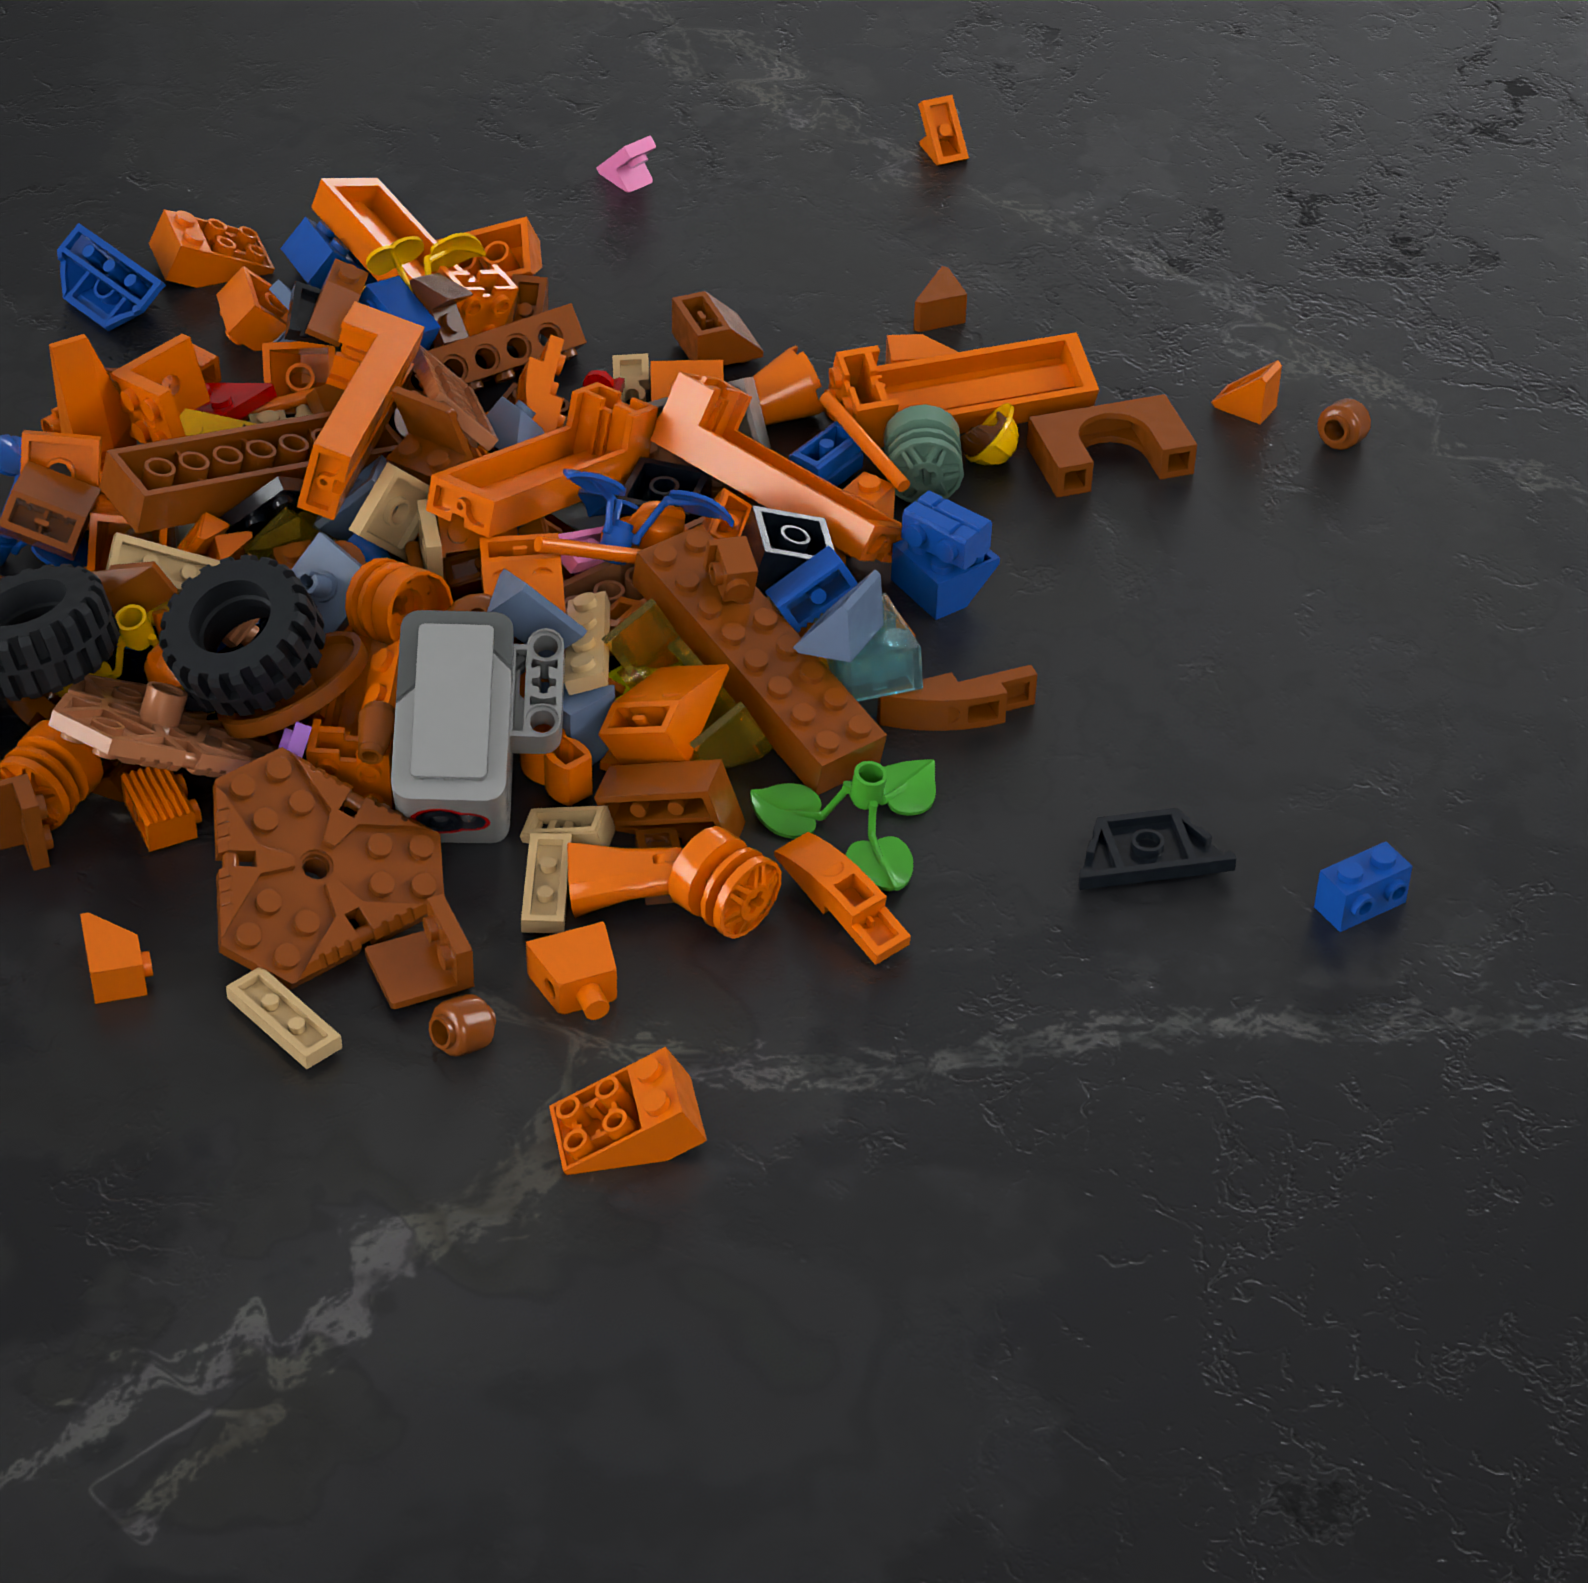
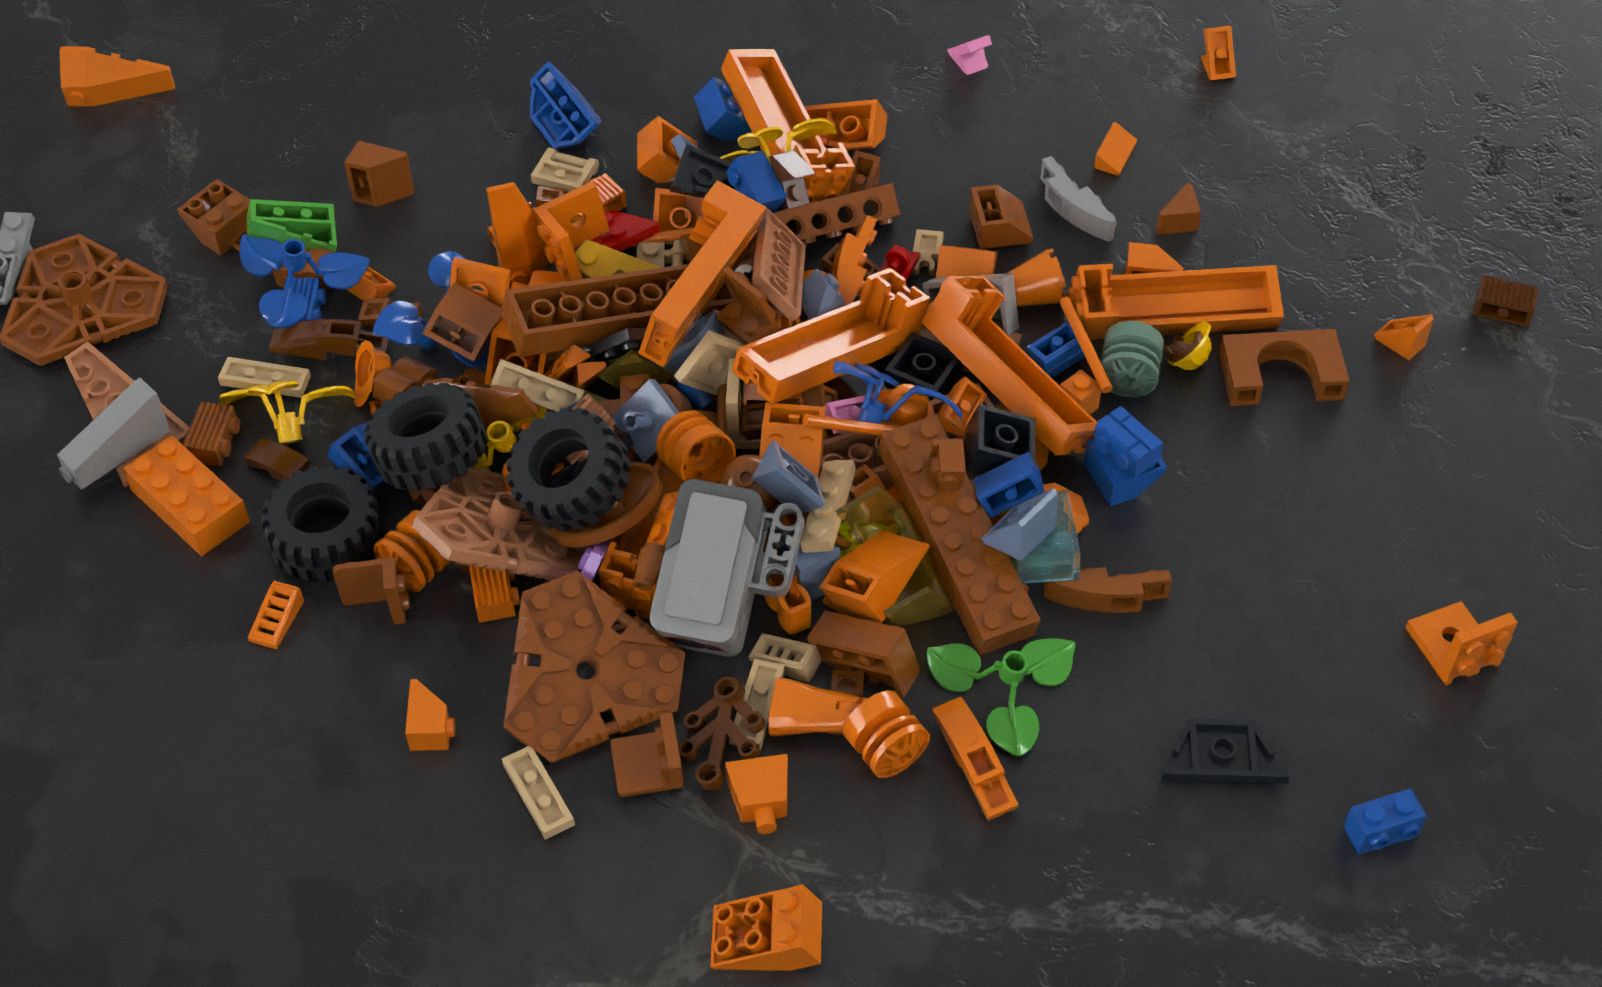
camera: 15 degrees right, 10 degrees up
(123, 346) = (563, 170): none -> tan plate
(205, 251) = (641, 91): orange slope -> none
(335, 299) = (712, 166): dark orange slope -> none
(462, 1025) = (664, 824): dark orange head -> none
(507, 873) = (719, 729): none -> reddish brown plant
(806, 309) = (1076, 205): none -> light grey slope
(839, 248) = (1115, 150): none -> orange slope
(1344, 424) = (1474, 374): dark orange head -> none
(1360, 346) = (1505, 300): none -> reddish brown brick
(1419, 690) = (1472, 644): none -> orange bracket

